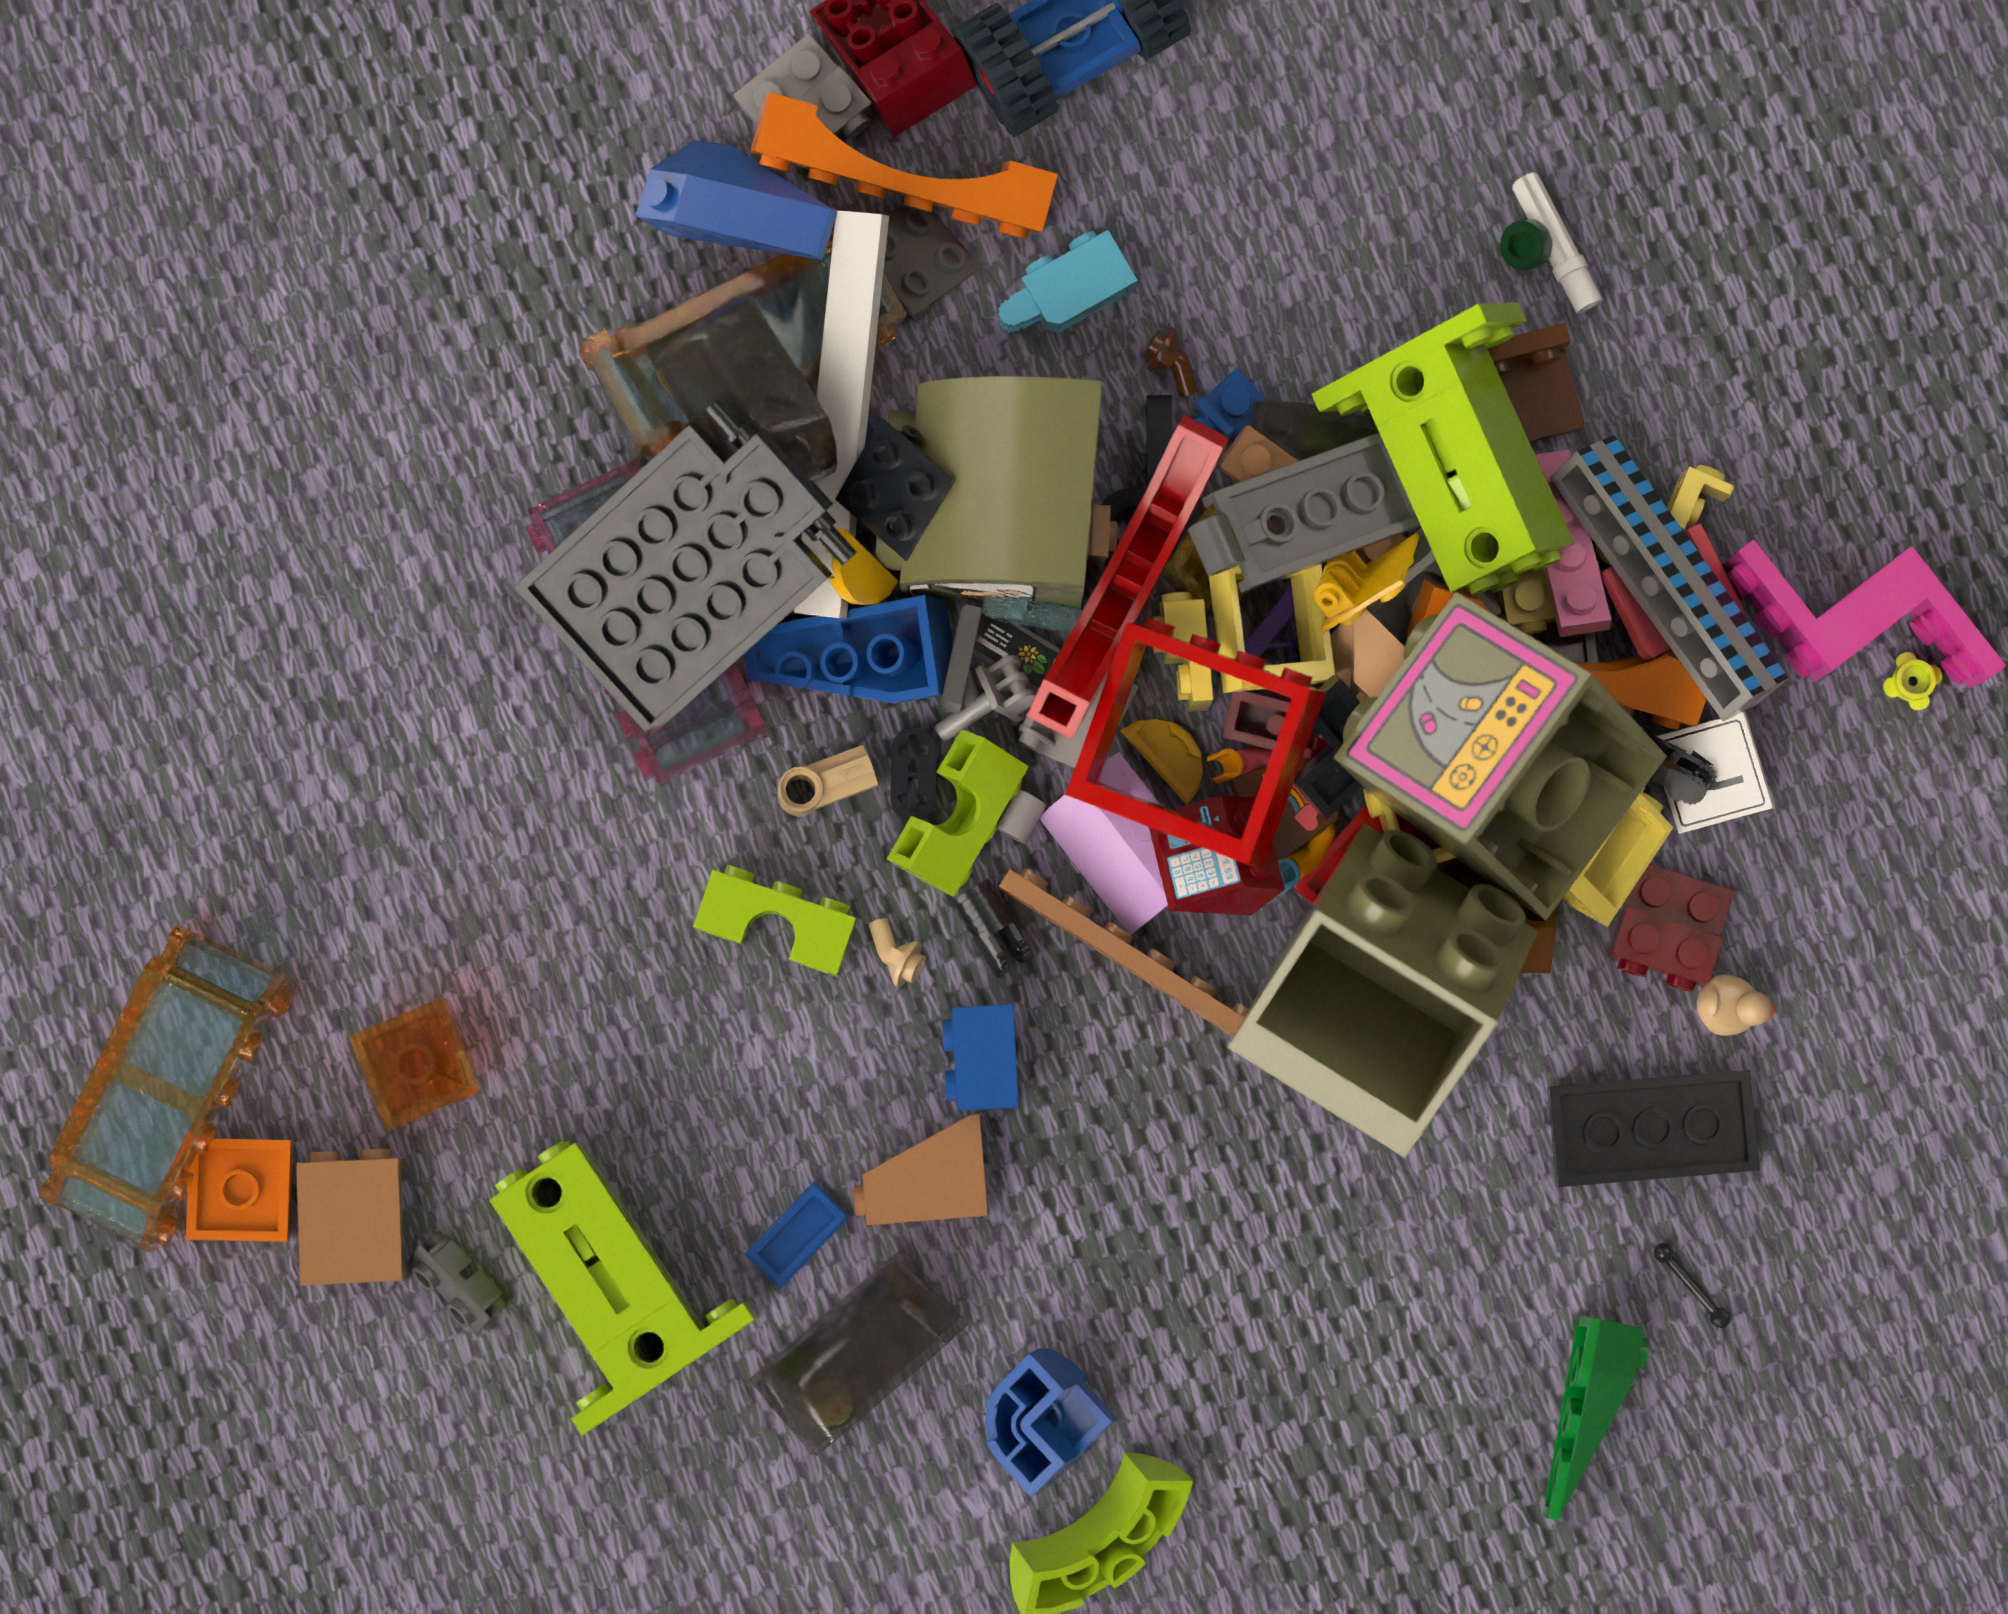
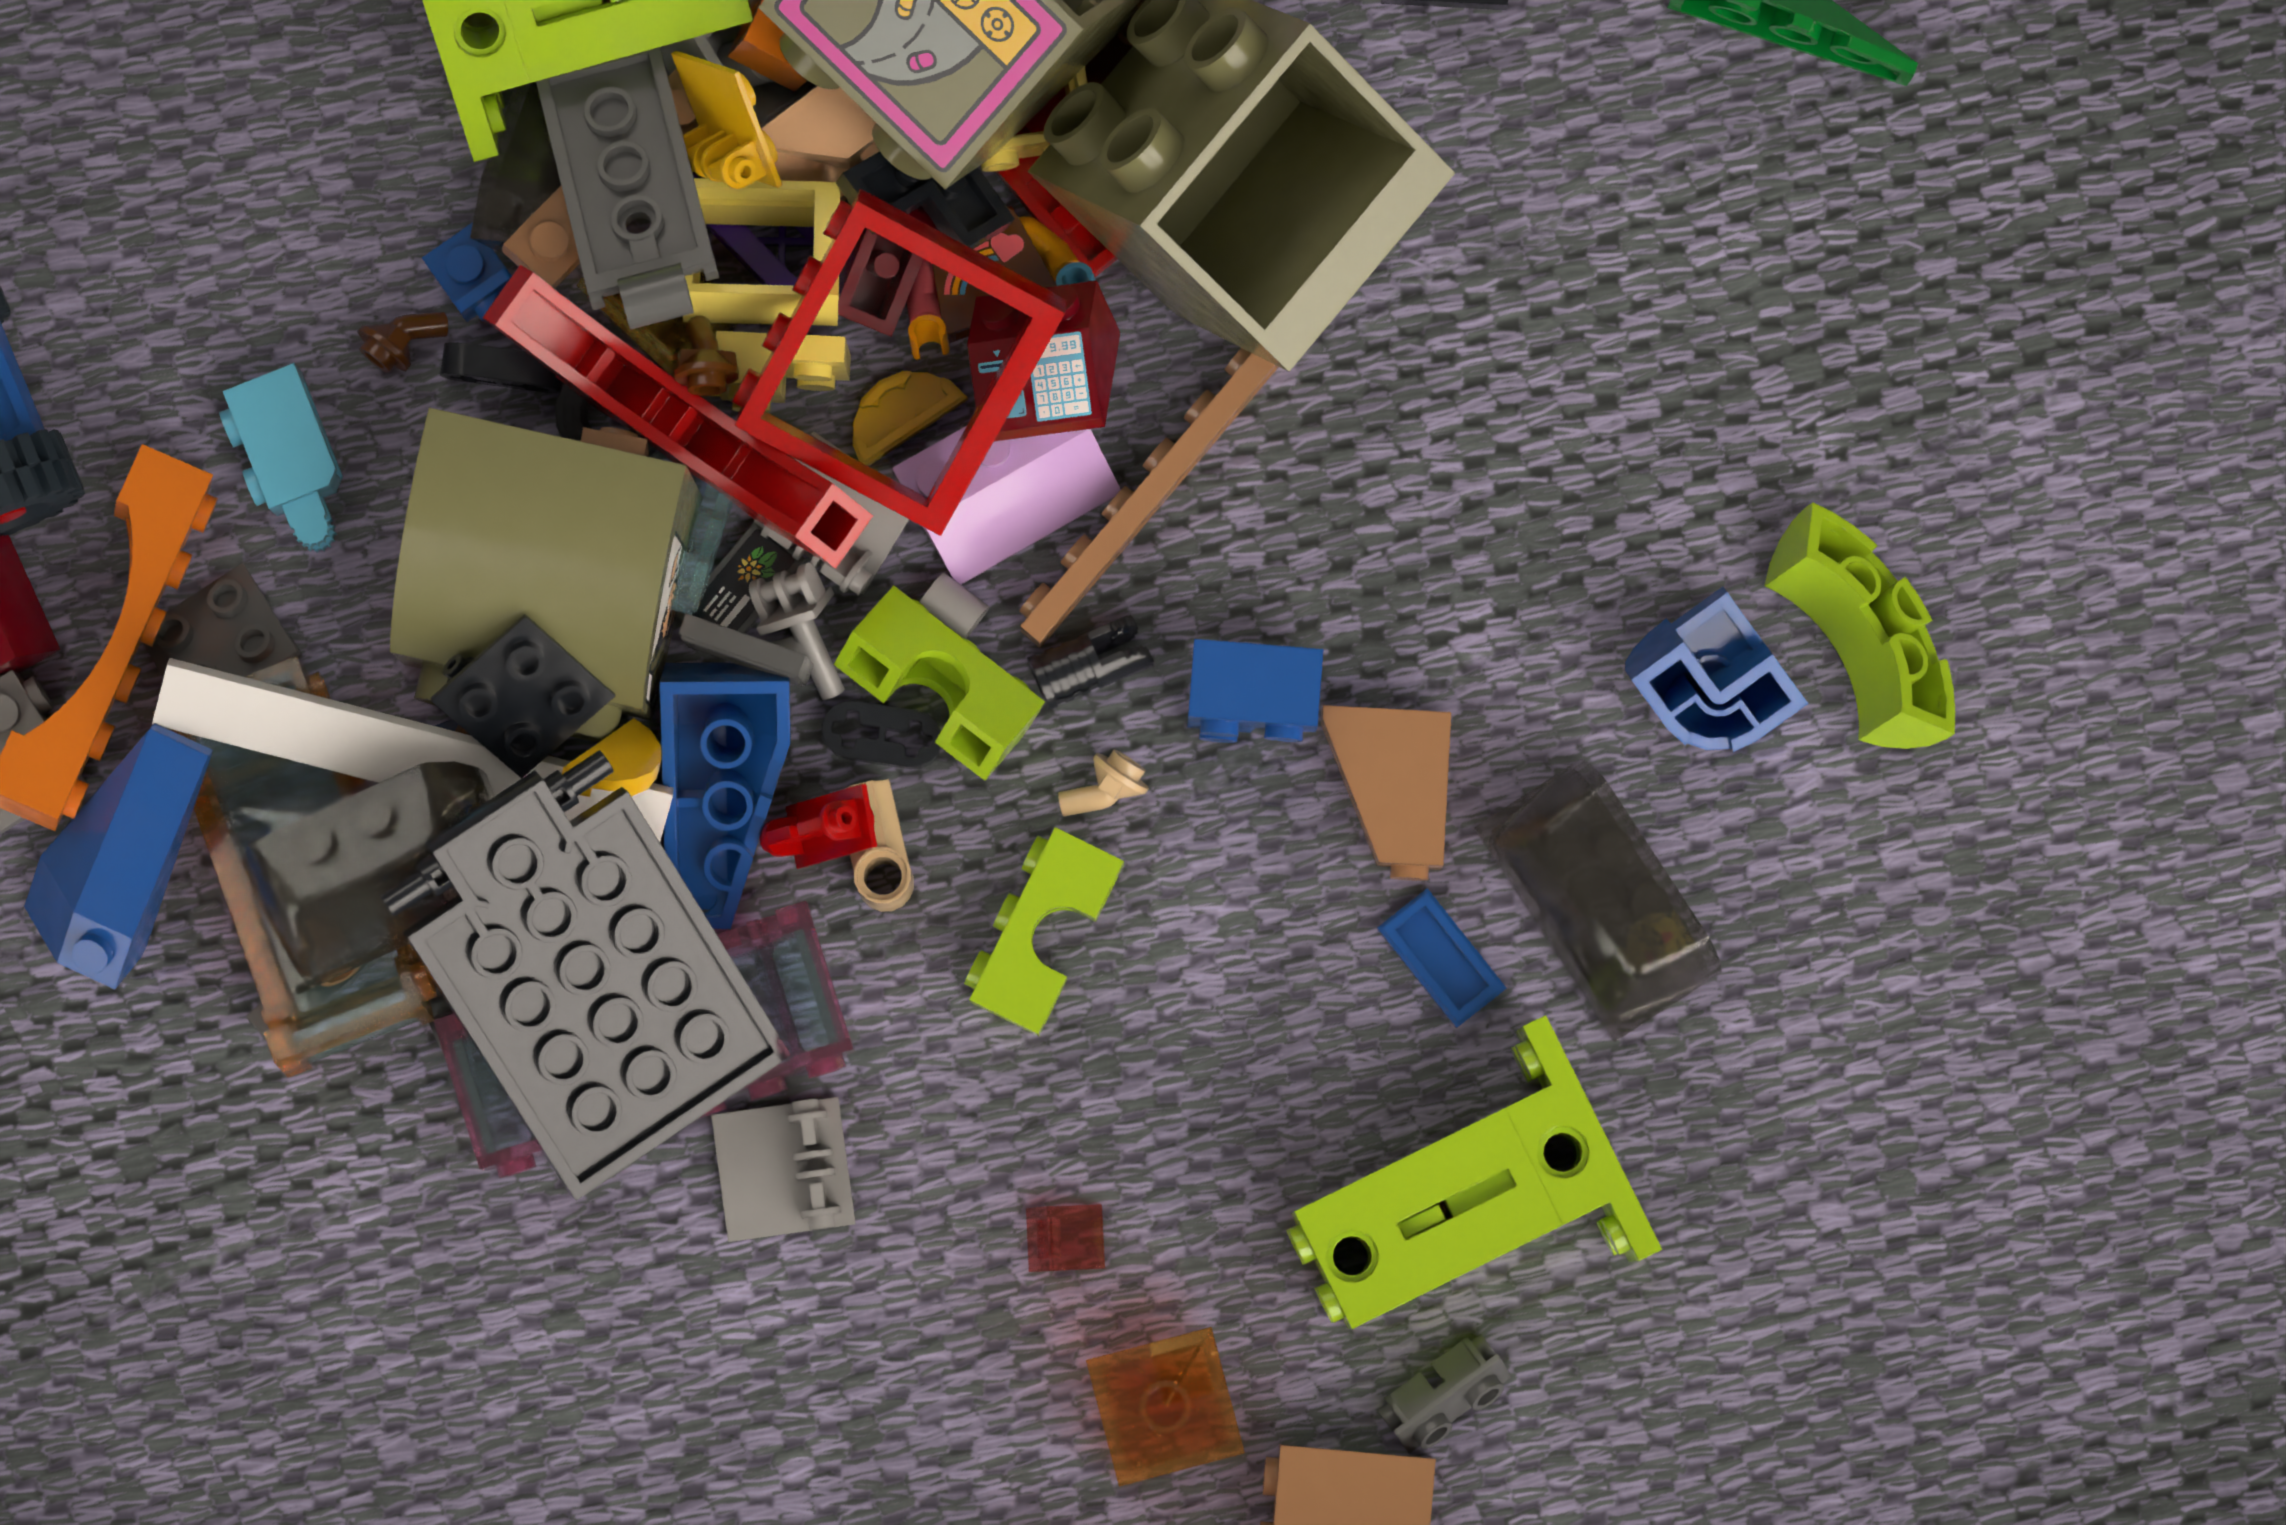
camera: 80 degrees left, 0 degrees up
(541, 971) = (1065, 1238): none -> clear red slope
(566, 746) = (783, 1169): none -> light grey hinge
(832, 738) = (822, 828): none -> red hinge
(1171, 592) = (705, 367): none -> reddish brown plate

